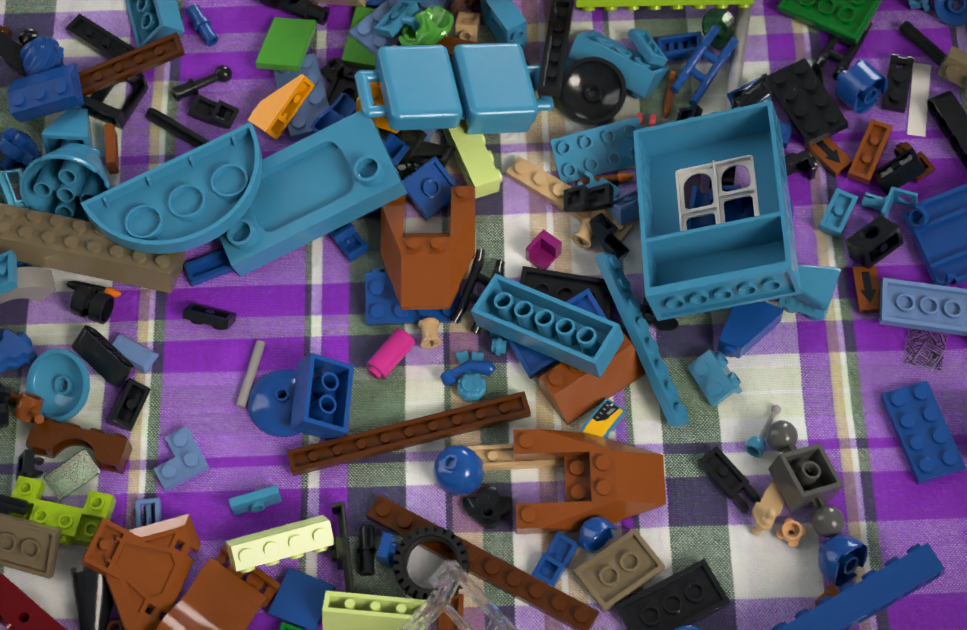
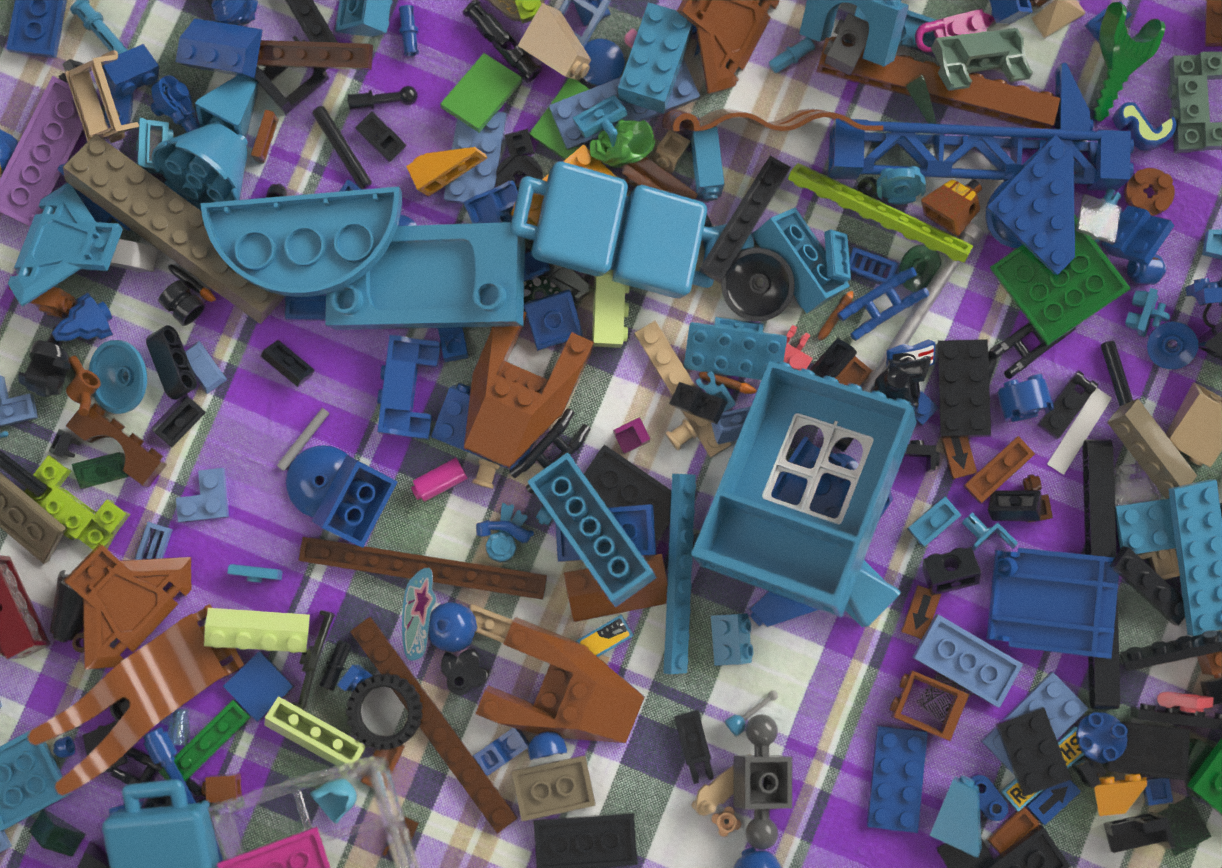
camera: 20 degrees right, 20 degrees up
(321, 301) = (399, 386): none -> blue bracket
(422, 470) = (416, 613): none -> sticker
(604, 233) = (696, 446): black slope -> none
(916, 336) = (952, 716): none -> dark orange window

